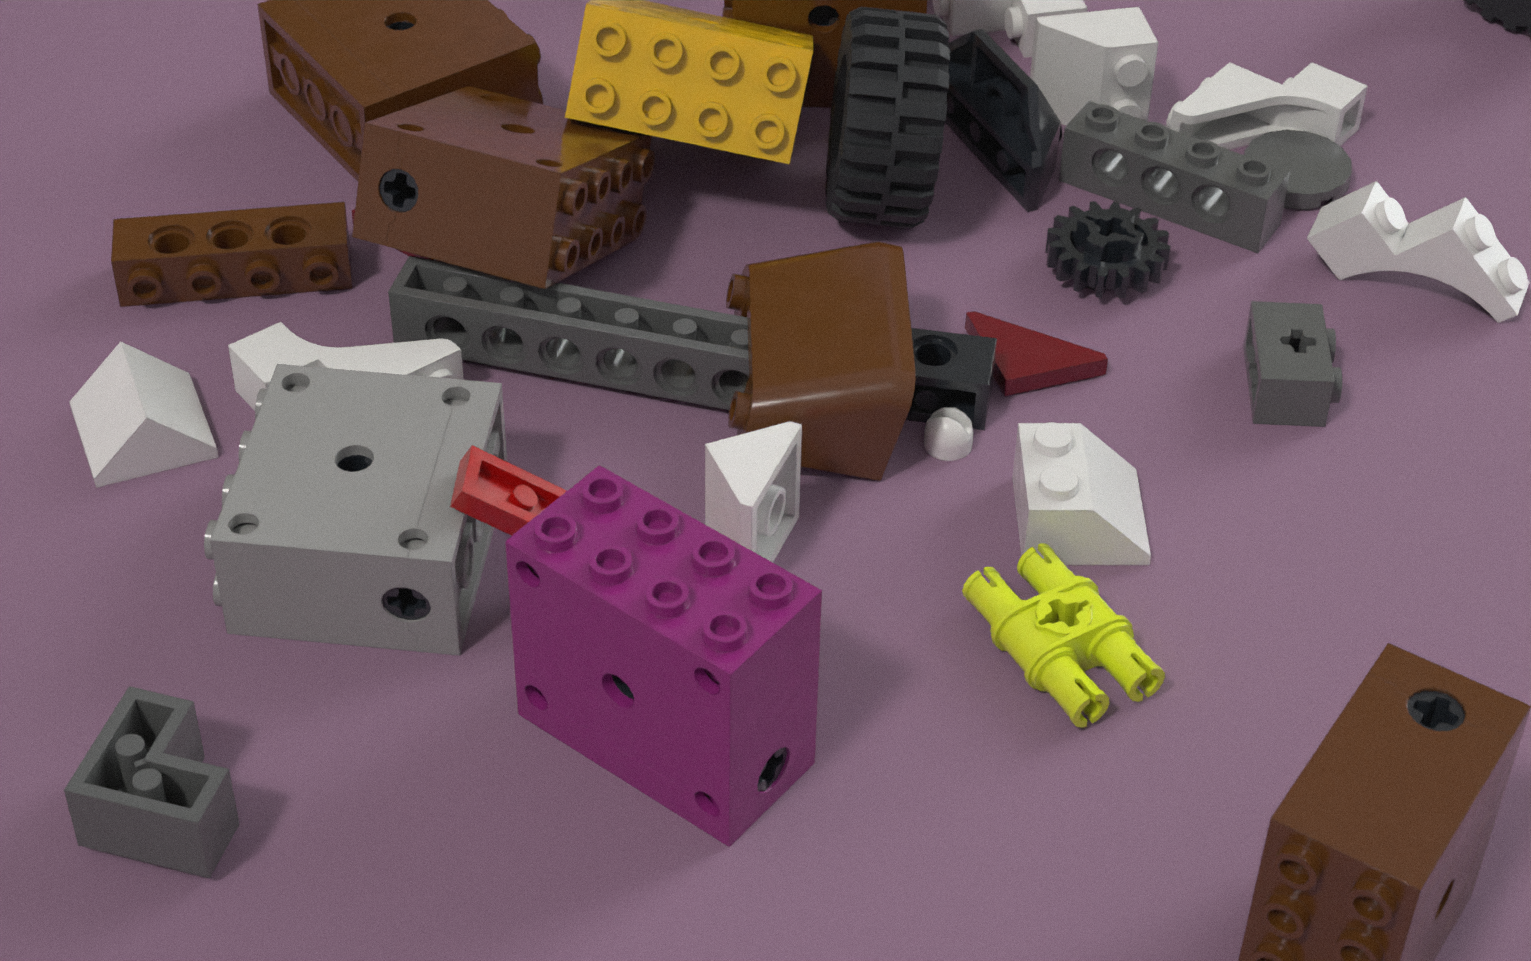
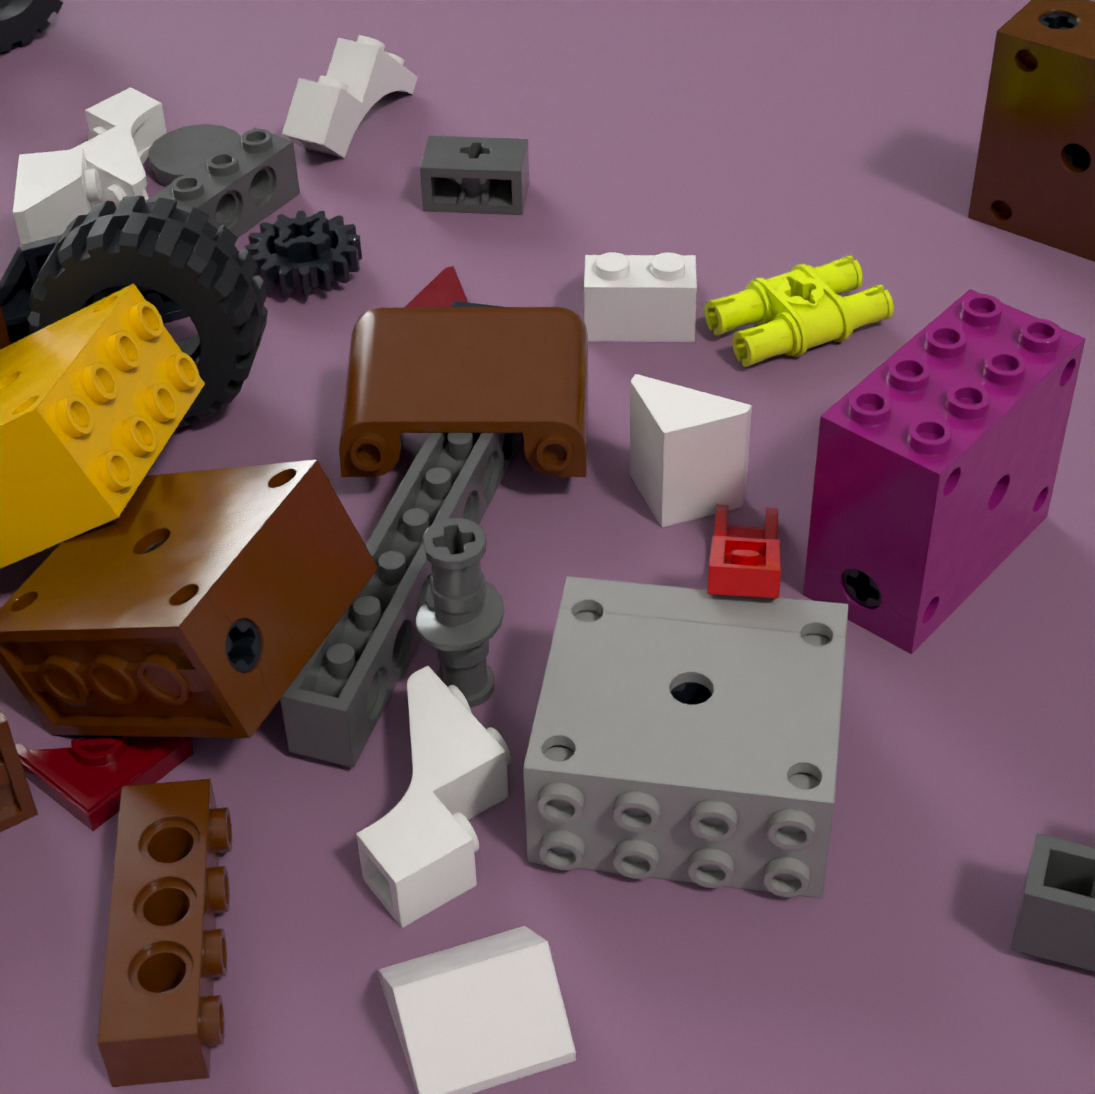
camera: 85 degrees left, 0 degrees up
(491, 336) = (460, 607): none -> dark grey piece

